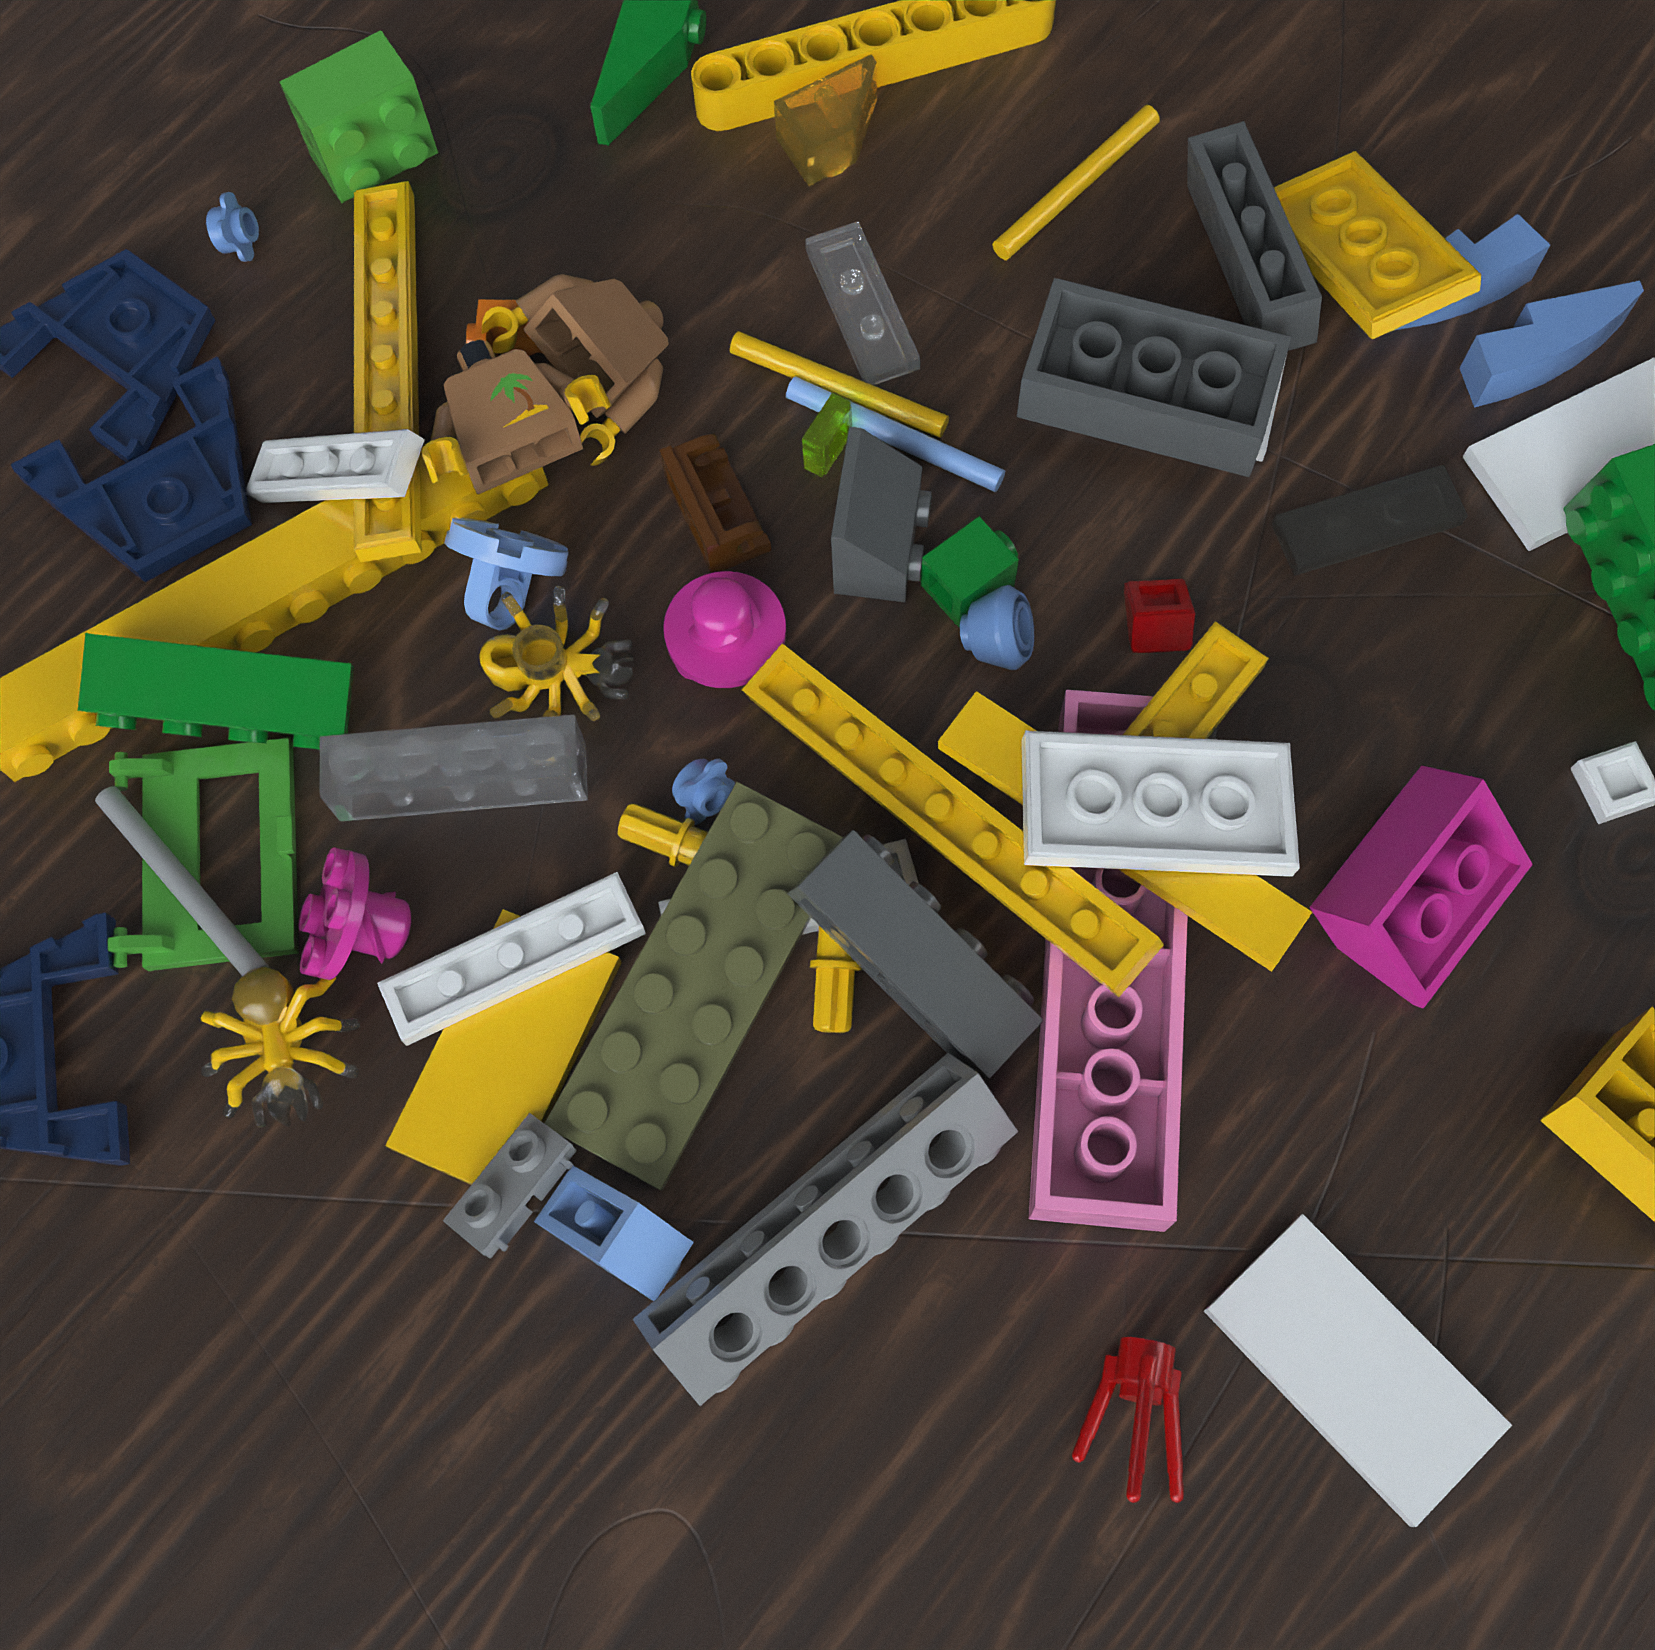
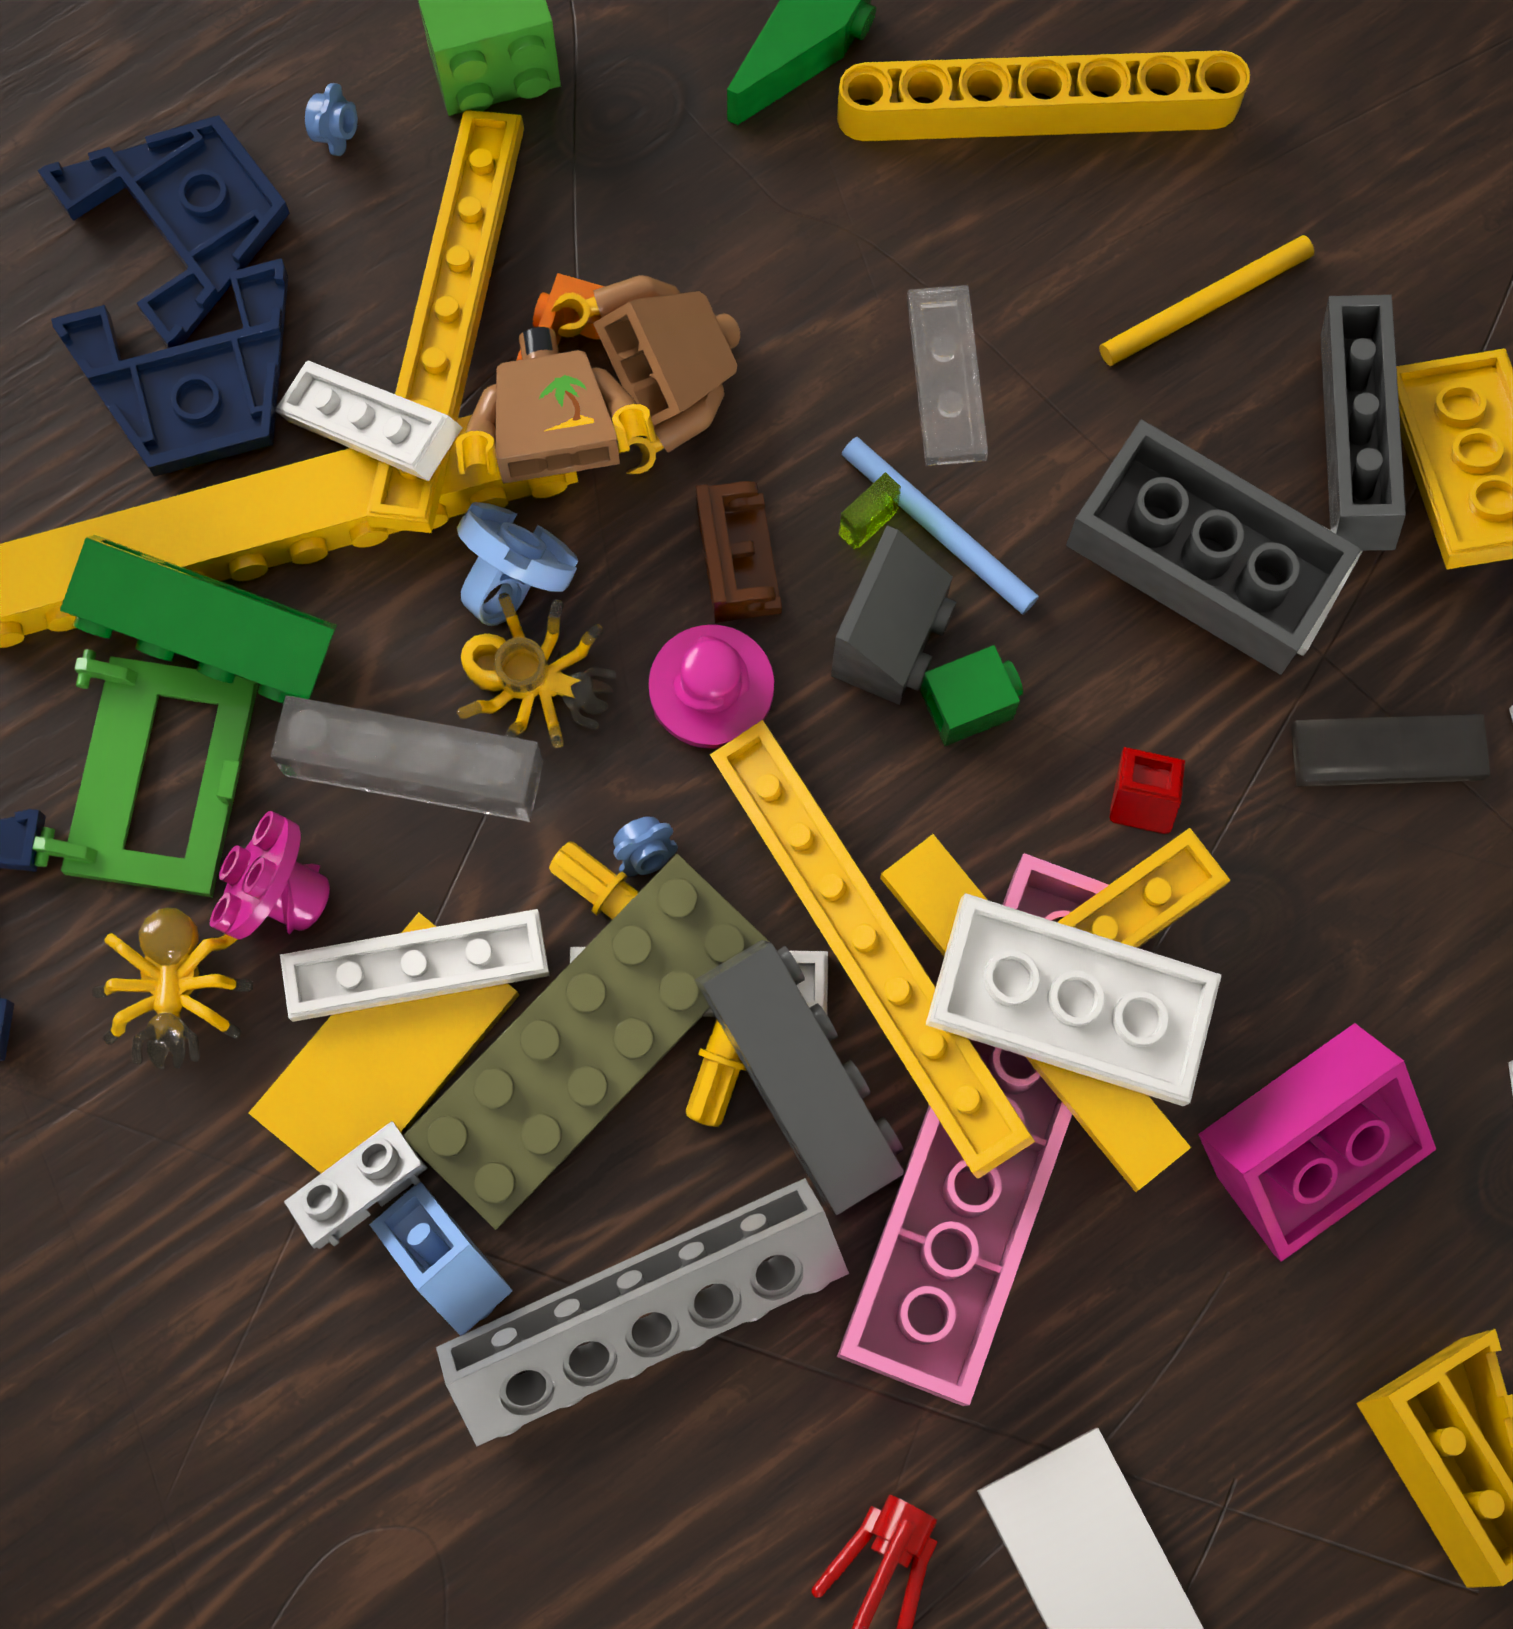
camera: 10 degrees right, 5 degrees up
(179, 881) = (116, 798): light grey bar -> none
(828, 120) = (969, 165): clear yellow slope -> none
(840, 384) = (898, 456): yellow bar -> none
(999, 628) = (982, 764): medium blue cone -> none

